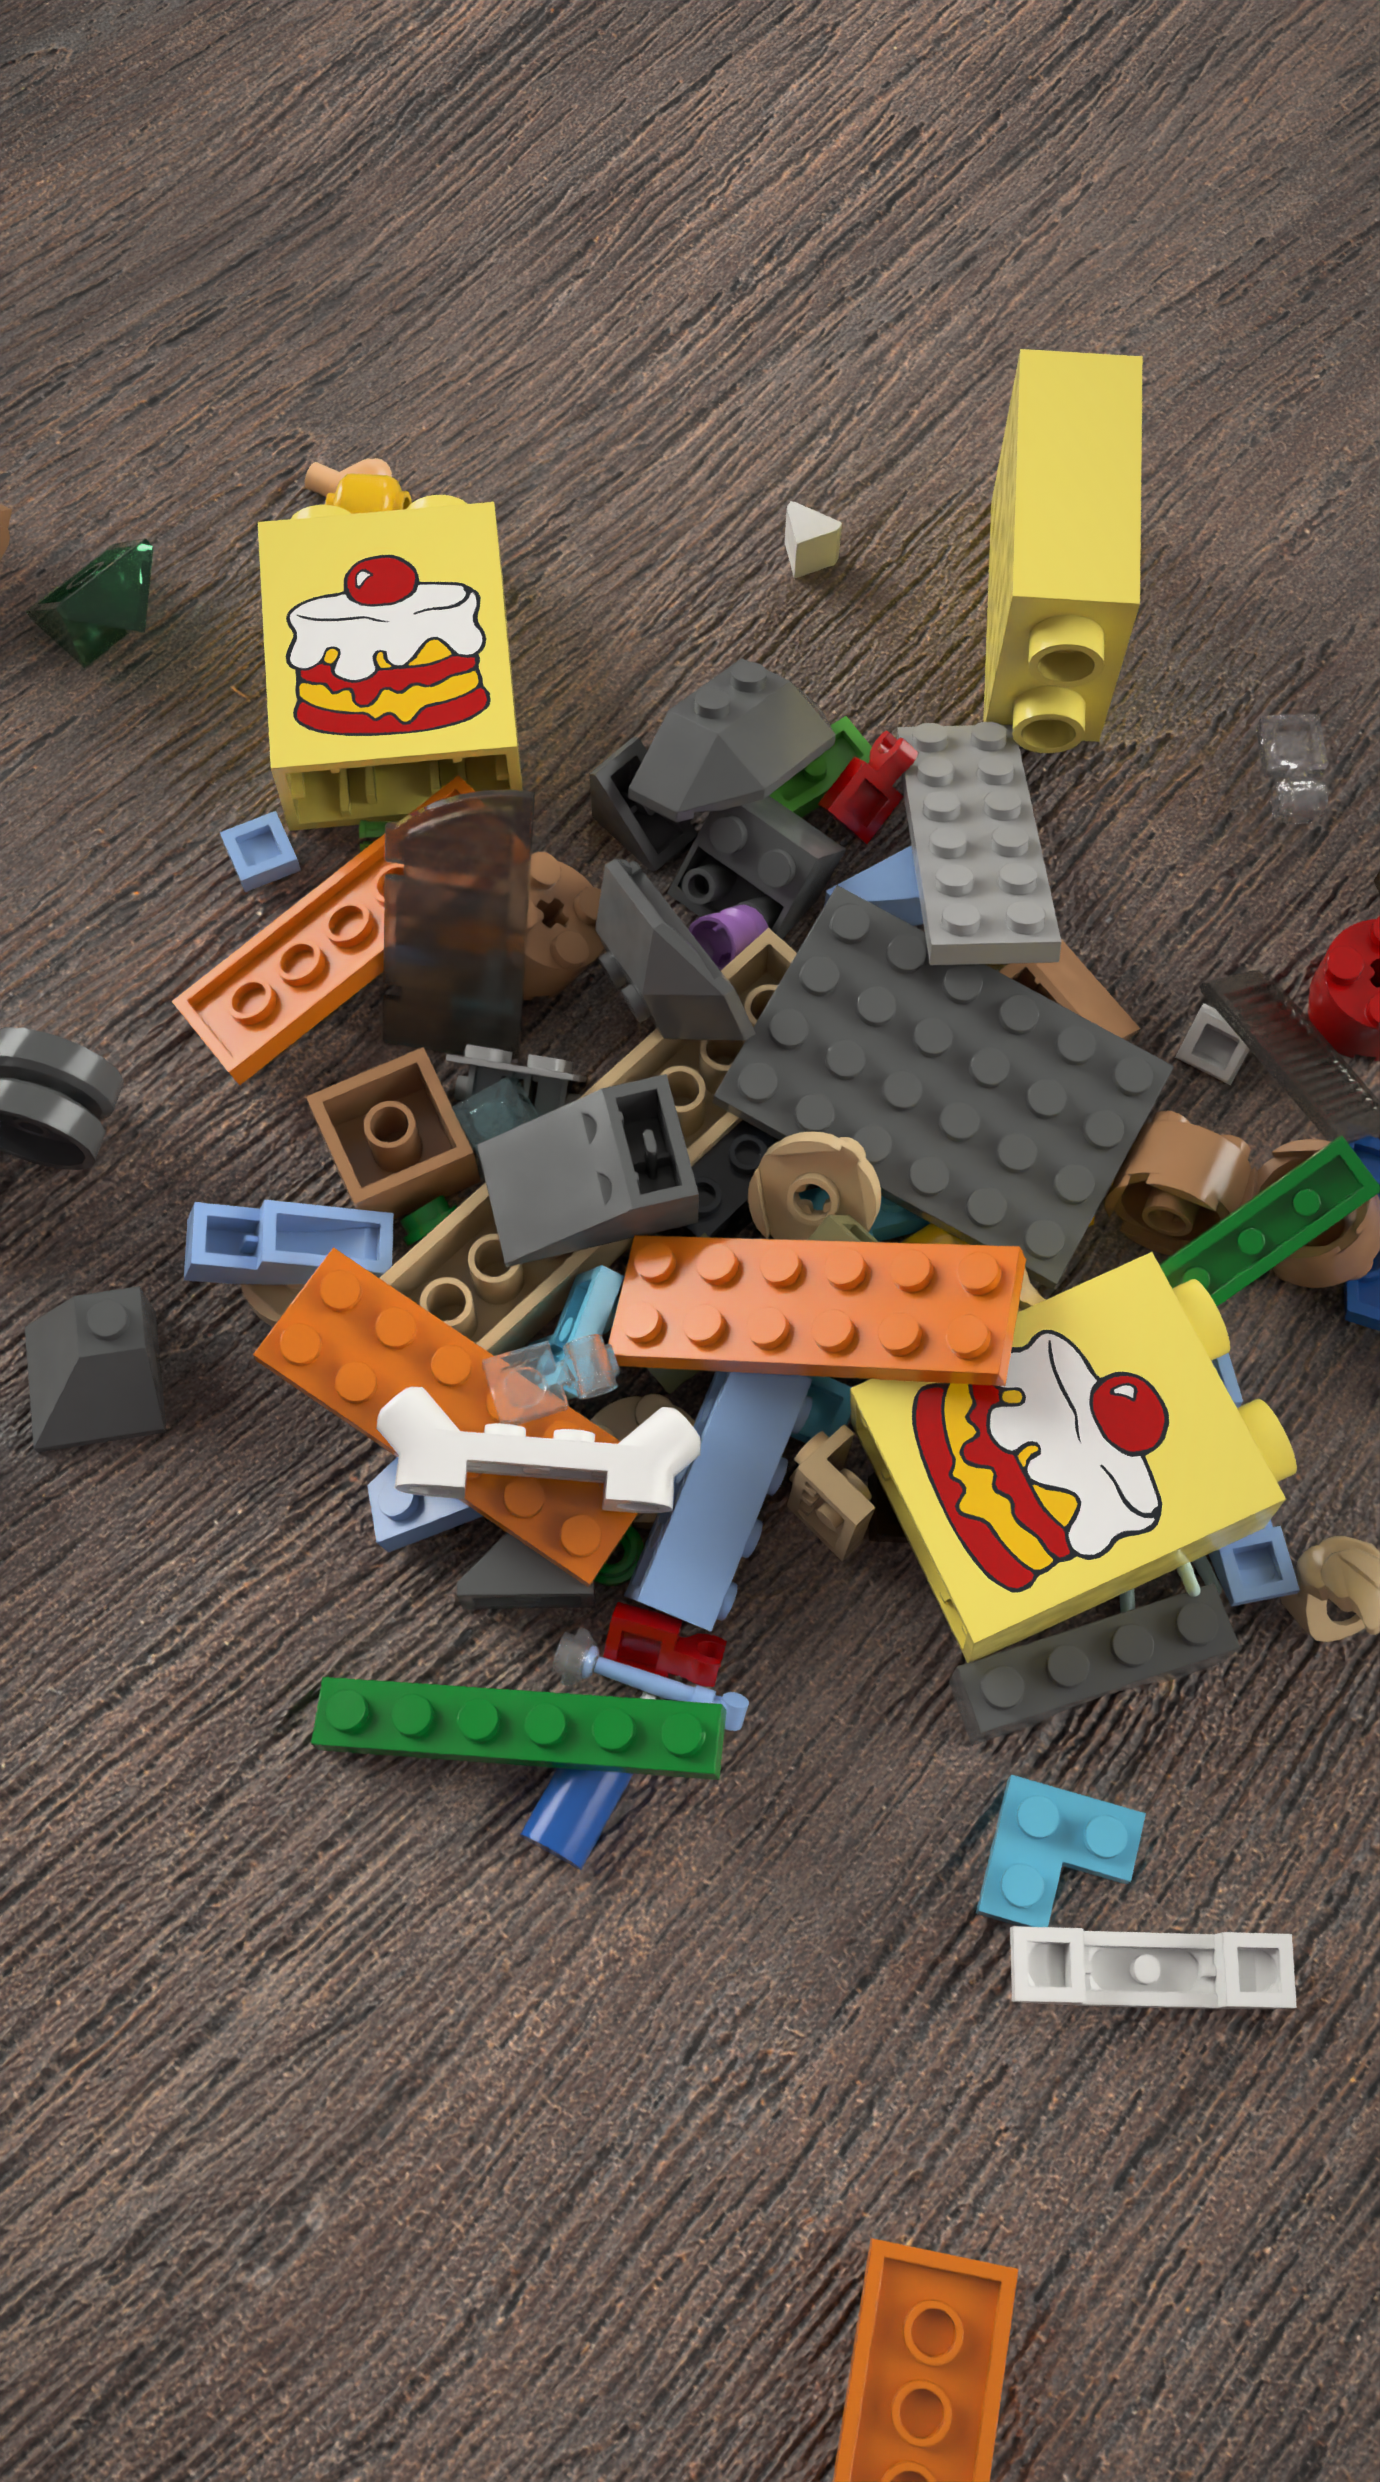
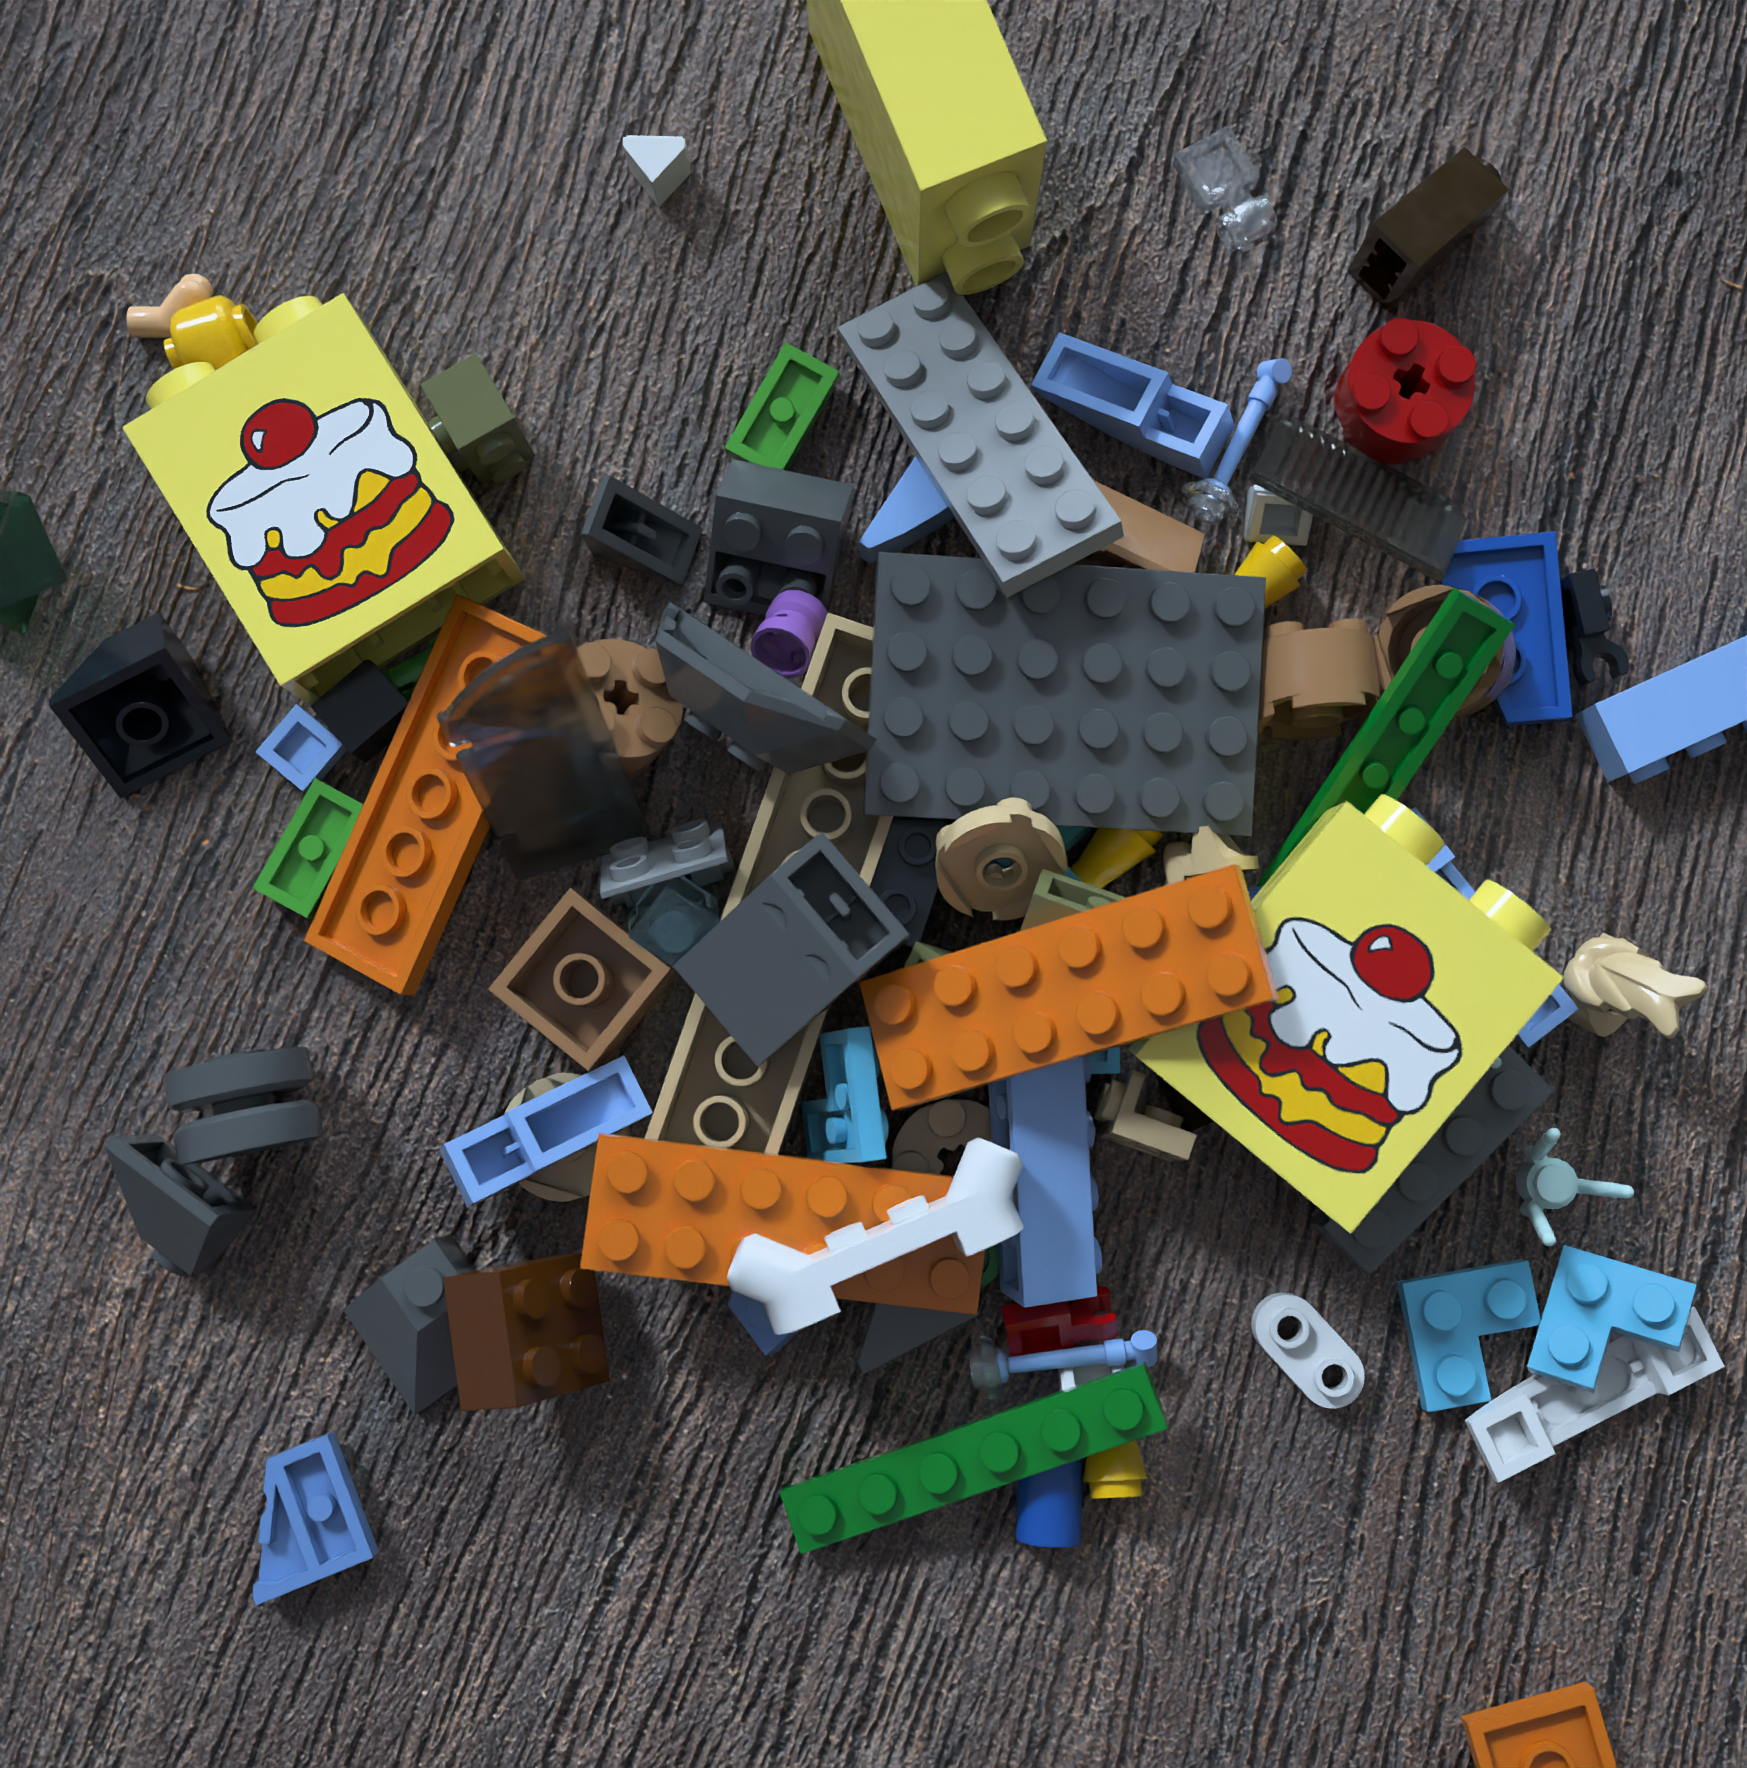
camera: 20 degrees left, 15 degrees up
(144, 757) = (140, 707): none -> black slope
(175, 1403) = (525, 1332): none -> reddish brown brick
(217, 930) = (309, 849): none -> bright green plate
(326, 837) = (362, 710): none -> black panel
(425, 1219) = (656, 1038): green plate -> none
(530, 1384) = (842, 1177): clear plate -> none
(549, 657) = (476, 422): none -> olive brick
(648, 1811) = (1115, 1472): none -> yellow cone
(730, 744) = (702, 436): dark grey wedge -> none
(865, 792) = (845, 417): red plate -> none
(888, 1796) = (1308, 1351): none -> white plate
(1130, 899) = (1135, 404): none -> light blue slope
(1161, 1003) = (1212, 498): none -> piece
(1188, 1087) = (1275, 563): none -> yellow cone
(1195, 1879) = (1600, 1297): none -> medium azure plate
(1202, 1746) = (1553, 1184): none -> light aqua plant

